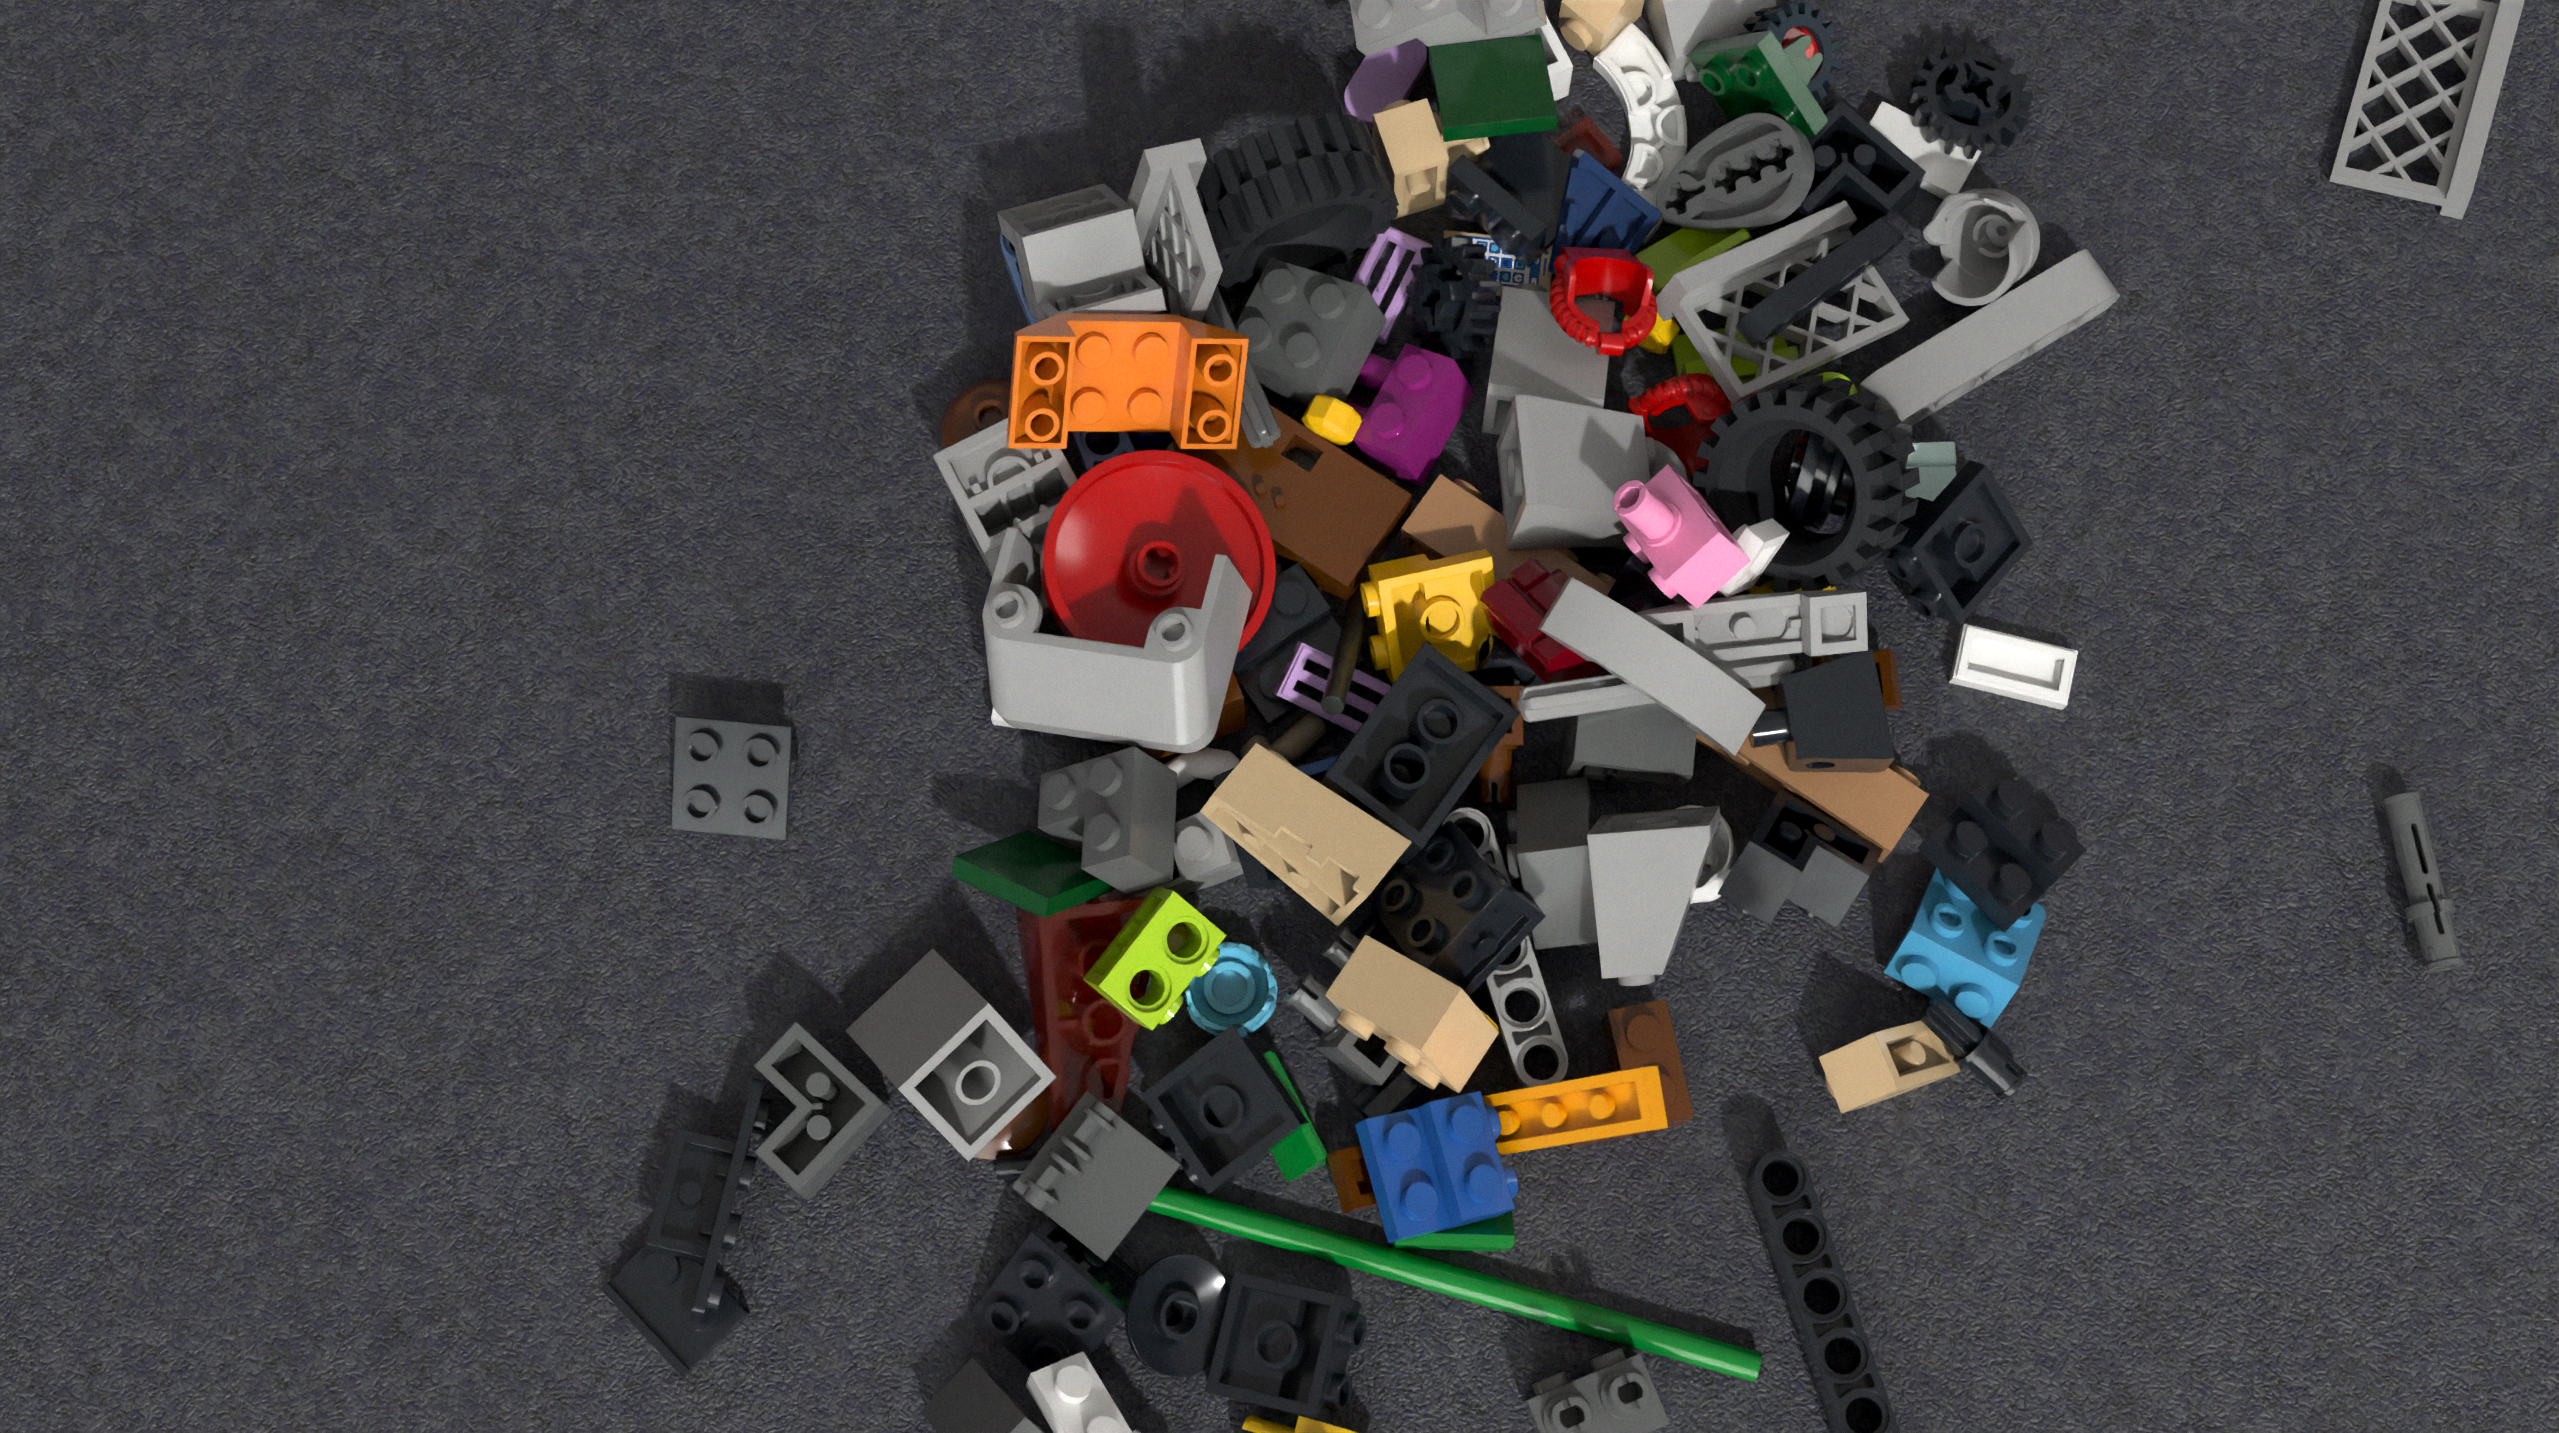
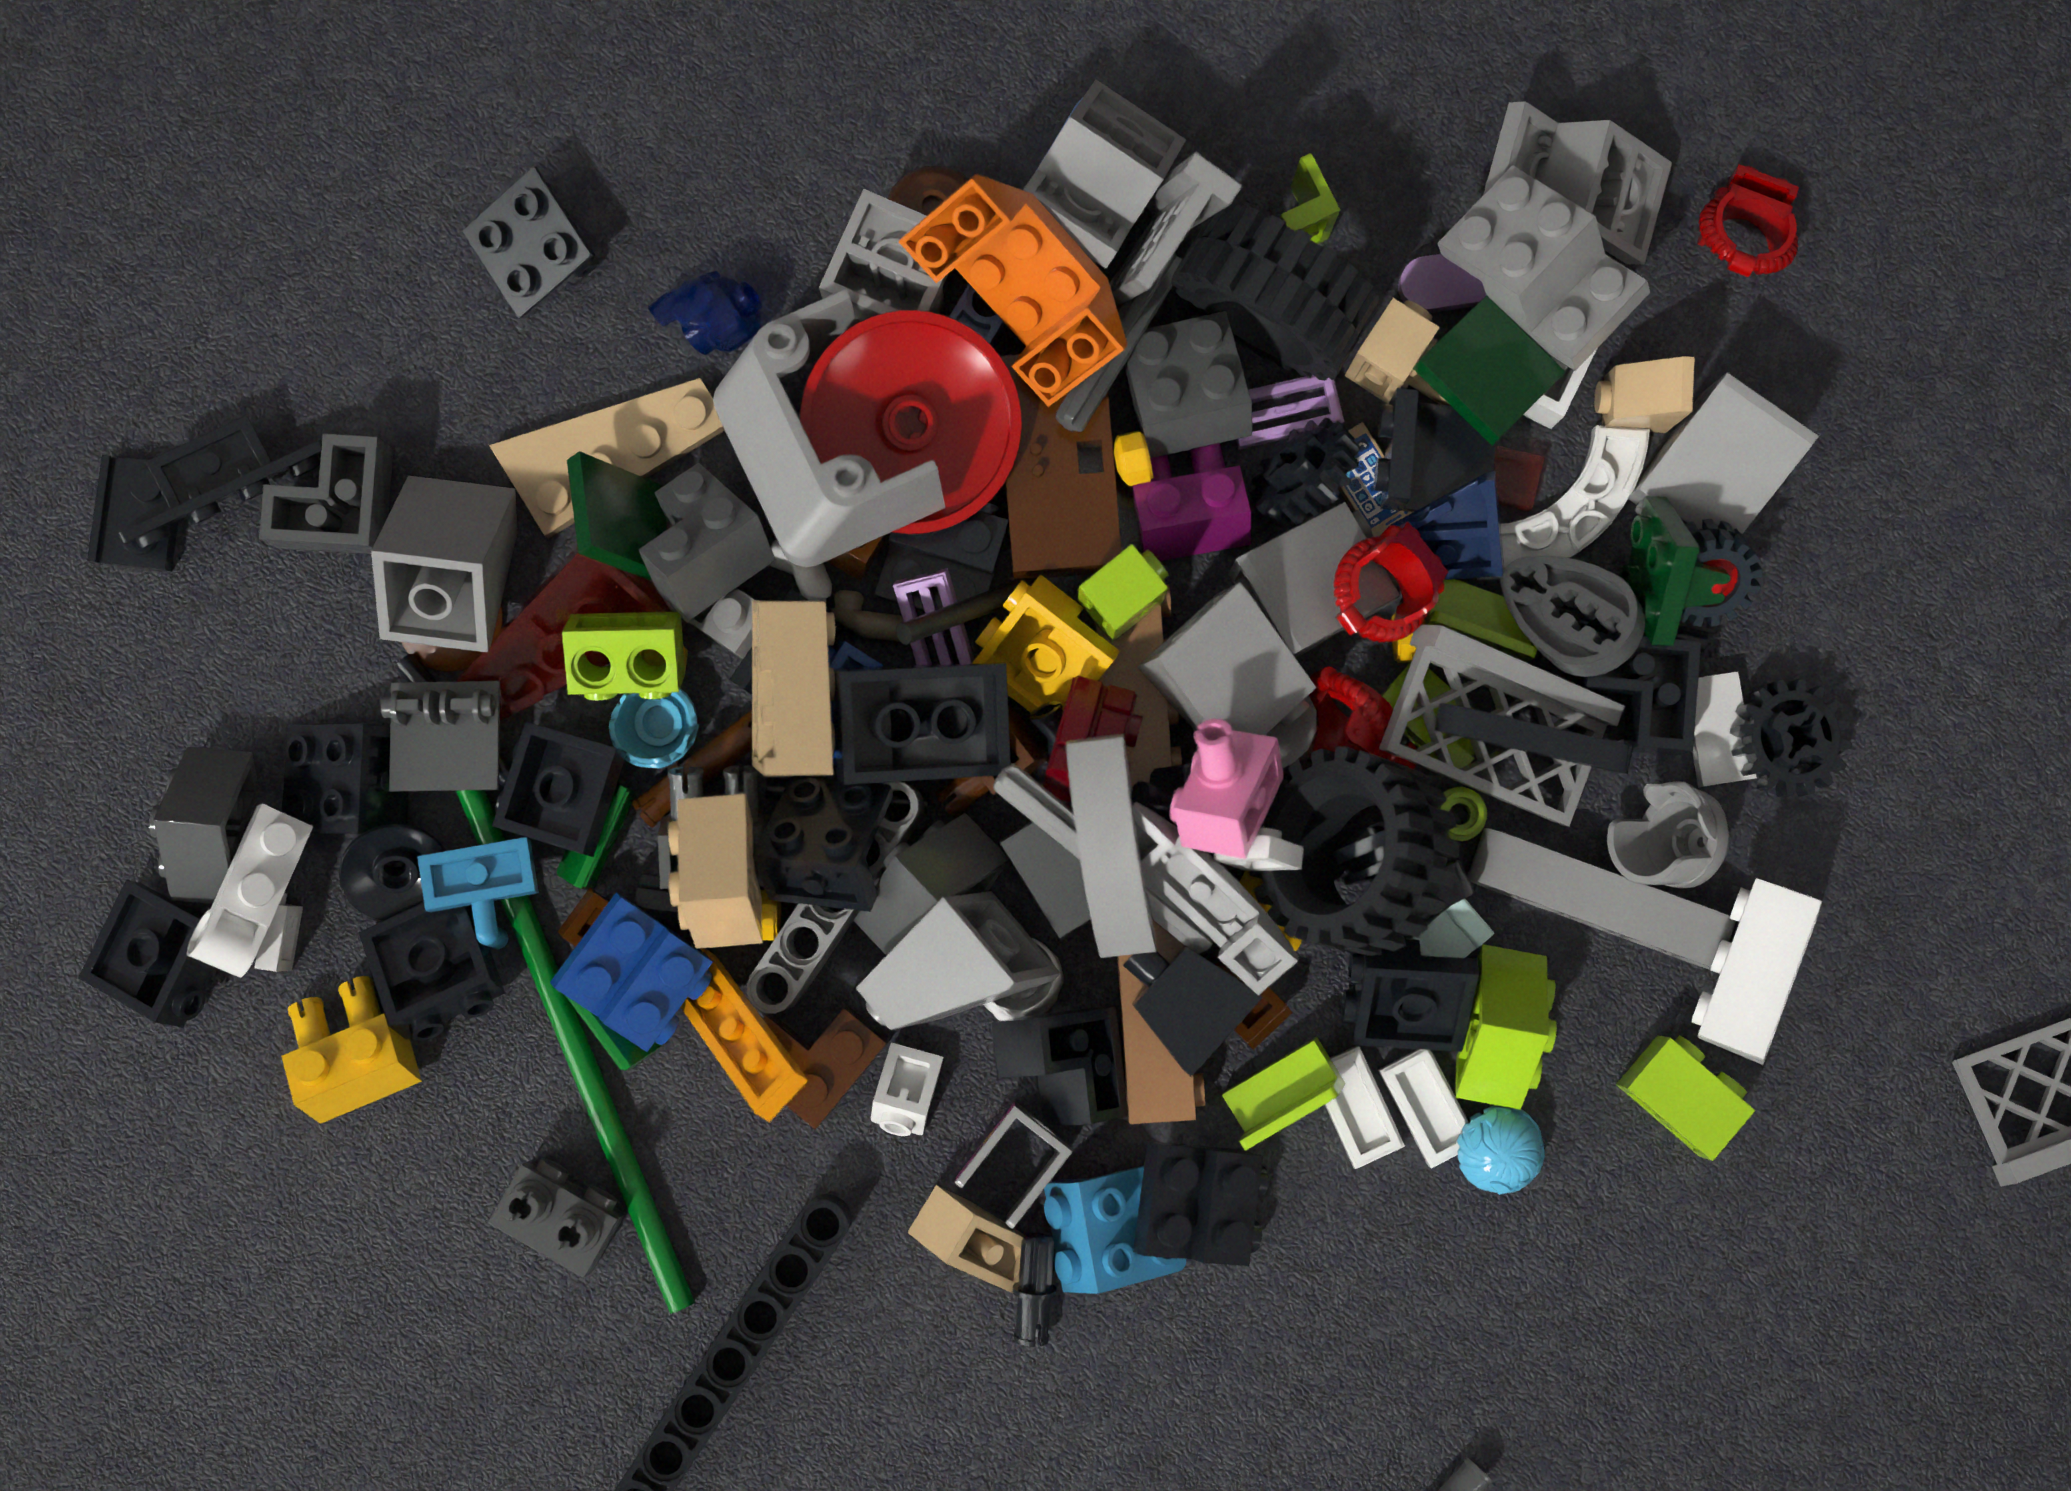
camera: 50 degrees right, 10 degrees up
(920, 669) = (711, 312): none -> clear blue head
(968, 812) = (632, 435): none -> tan wing
(1230, 118) = (1316, 202): none -> lime panel
(1246, 1240) = (478, 879): none -> dark azure plate
(1299, 956) = (712, 758): none -> reddish brown pin
(1443, 501) = (1124, 591): none -> lime brick
(1716, 1023) = (905, 1090): none -> white bracket
(1880, 963) = (1063, 1151): none -> light grey piece
(1959, 710) = (1284, 1092): none -> lime panel
(2048, 490) = (1506, 1028): none -> lime brick
(2057, 608) = (1426, 1104): none -> white tile
(2139, 575) = (1501, 1149): none -> medium azure hair
(2146, 258) = (1756, 969): none -> white slope
(2205, 397) = (1686, 1096): none -> lime brick

